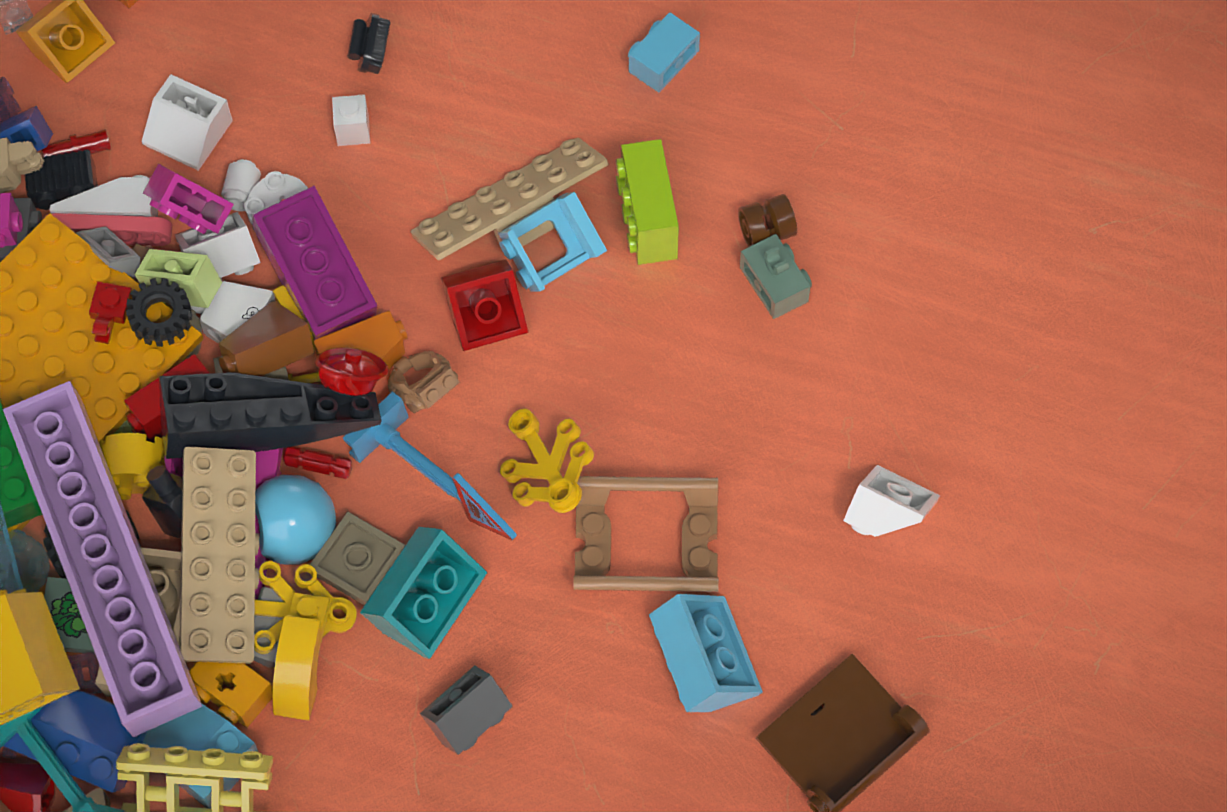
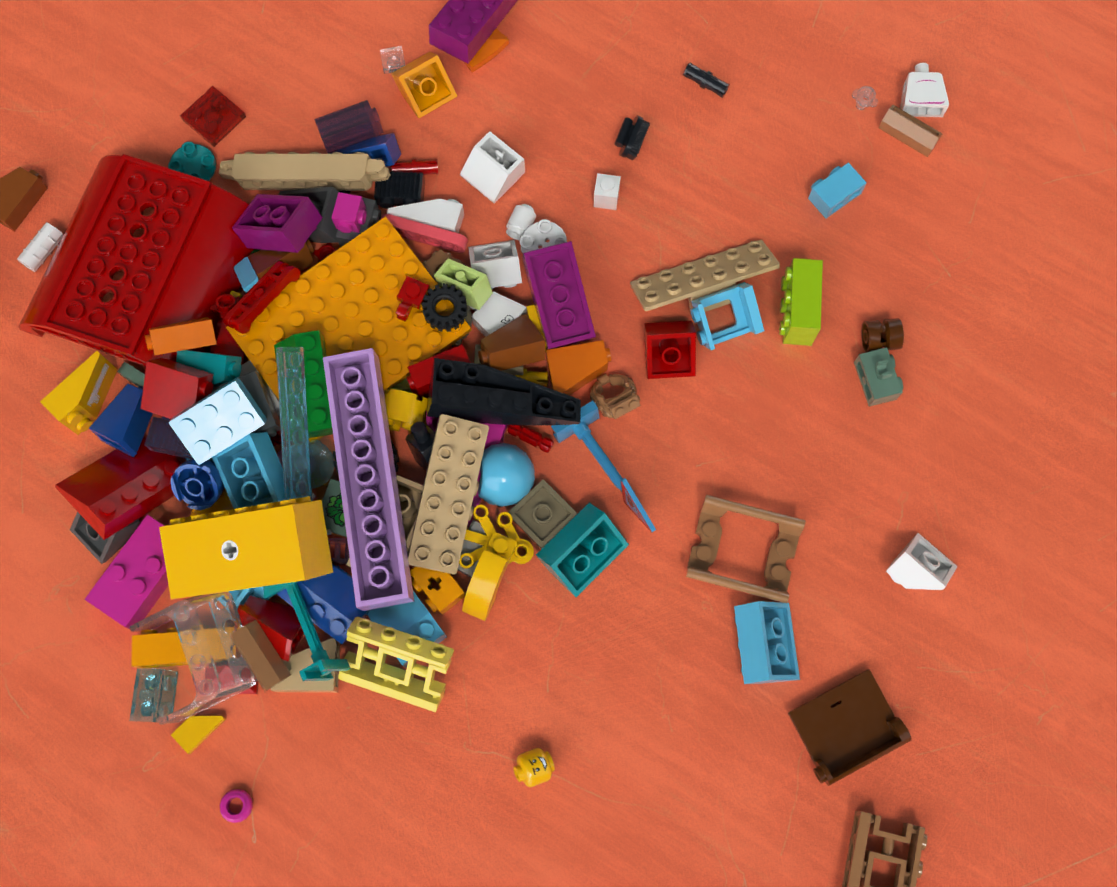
camera: 15 degrees right, 10 degrees up
(111, 250) = (422, 252): light grey slope -> none
(177, 195) = (482, 227): dark pink brick -> none
(350, 370) = (567, 381): red piece -> none
(466, 710) = (593, 644): dark grey brick -> none
(562, 493) = (689, 480): yellow plant -> none

